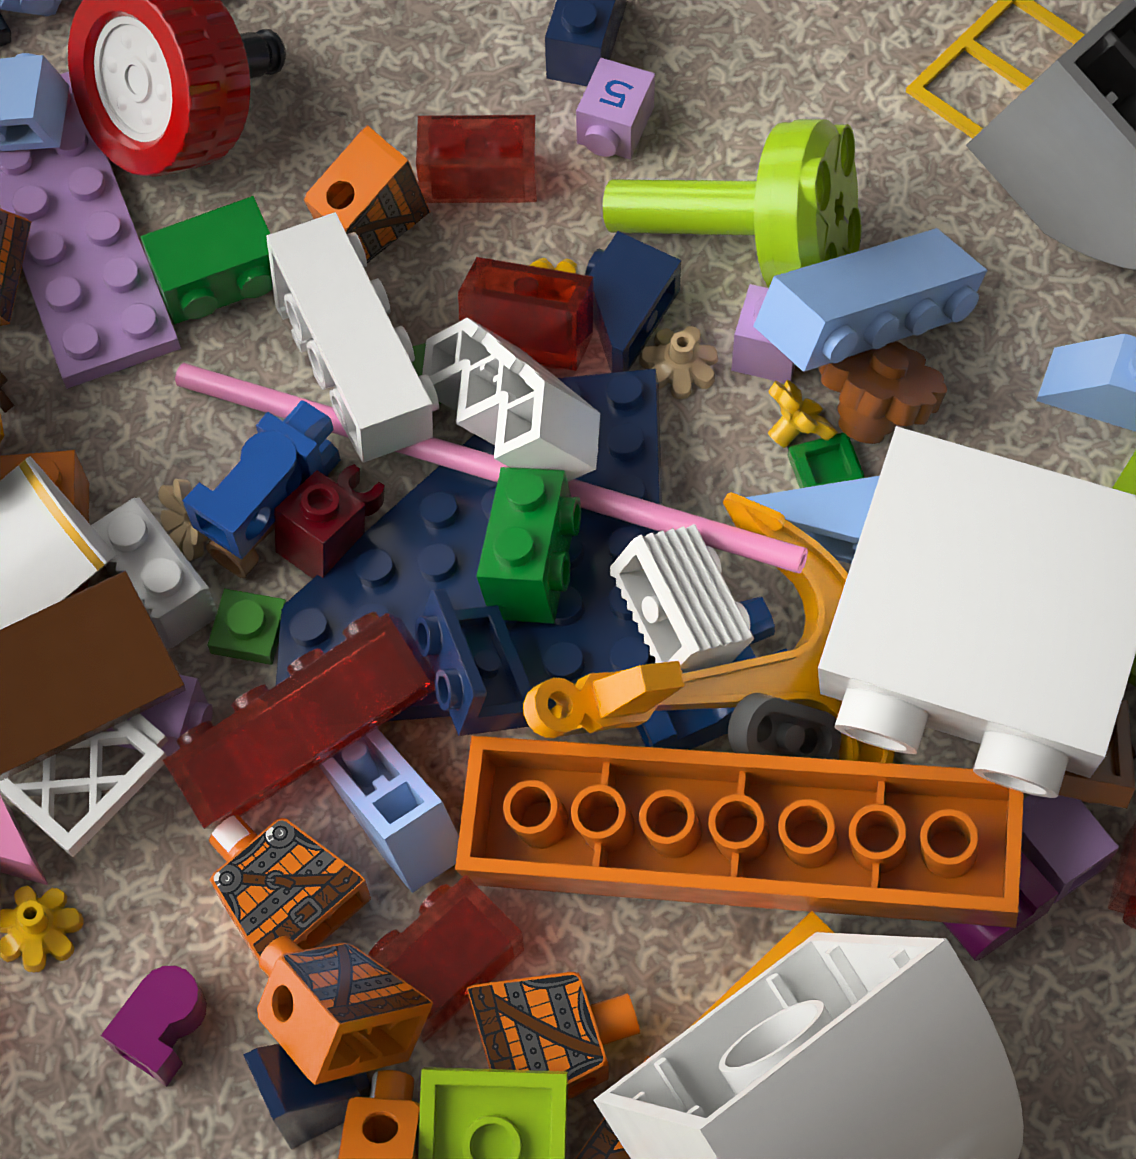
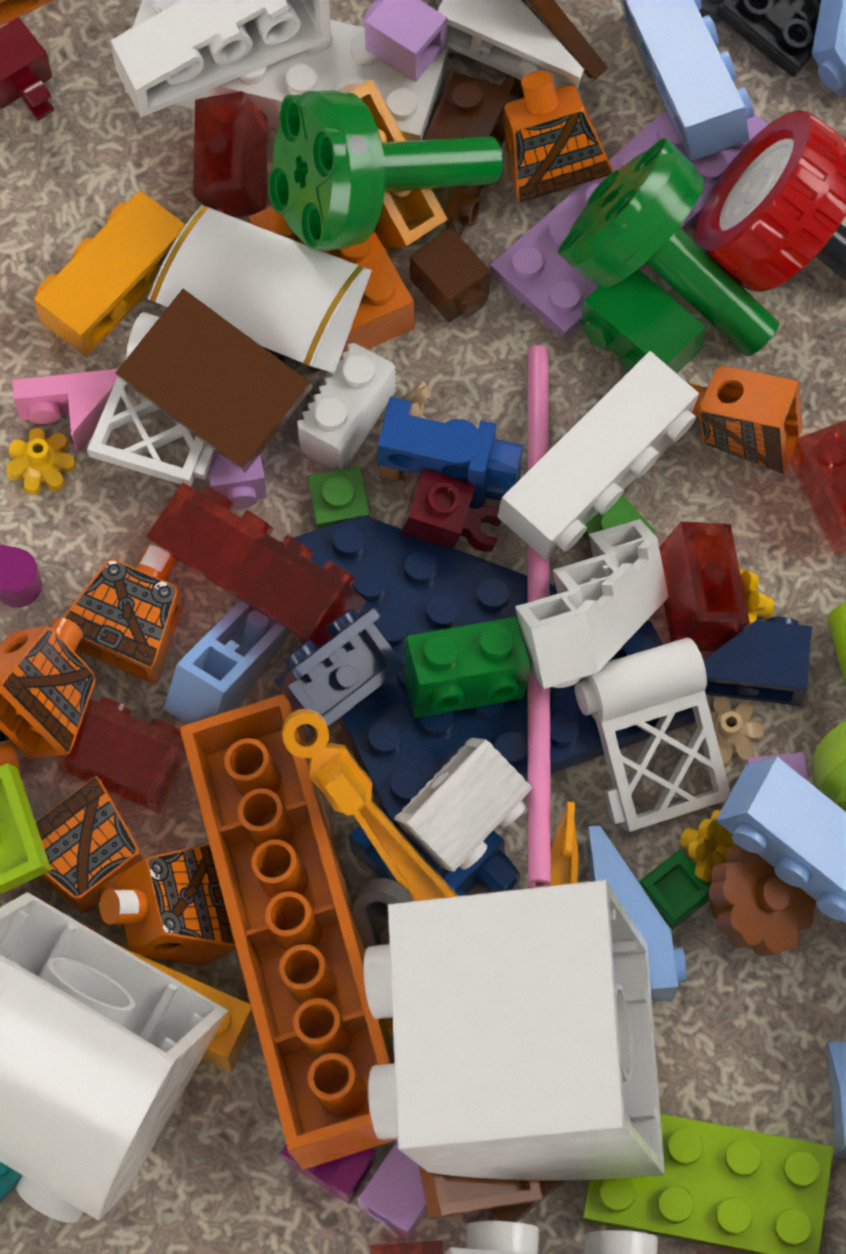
camera: 65 degrees right, 5 degrees up
(56, 414) = (450, 276): none -> reddish brown brick
(117, 195) = (638, 220): none -> green piece
(624, 389) = (641, 690): none -> white piece
(656, 957) = (172, 907): none -> torso

